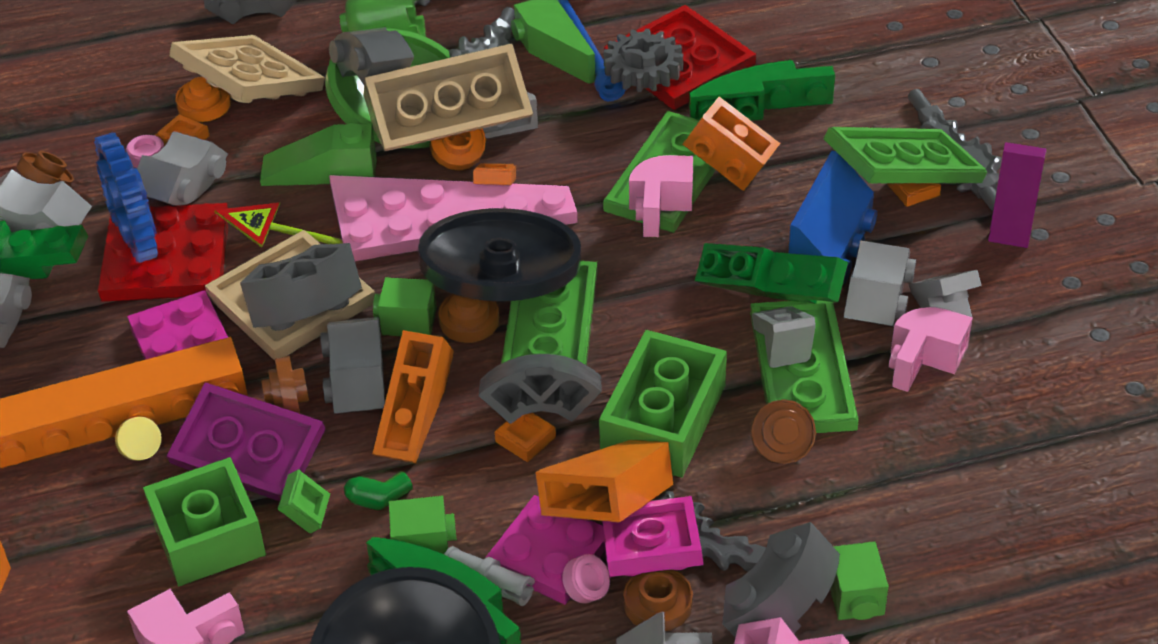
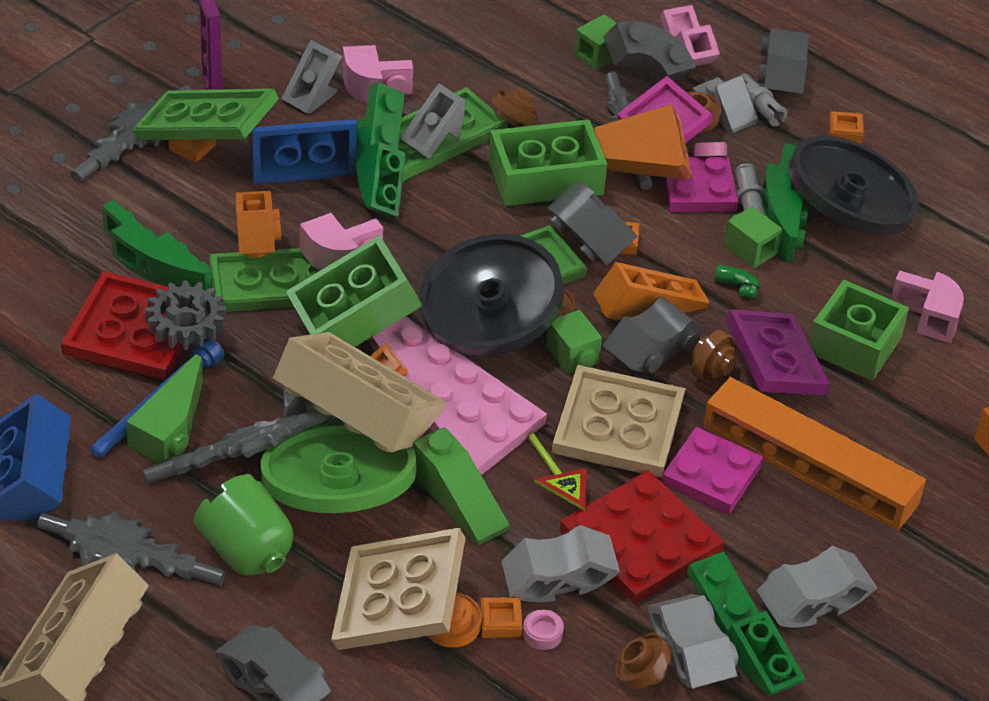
camera: 130 degrees left, 0 degrees up
(126, 197) = (668, 498): blue gear -> none
(138, 438) = (831, 421): light yellow tile -> none
(301, 286) = (634, 371): dark grey brick -> none
(304, 501) = (788, 301): bright green tile -> none
(370, 52) = (358, 451): dark grey brick -> none
(569, 160) = (355, 295): none -> bright green brick
(879, 283) = (338, 103): light grey brick -> none

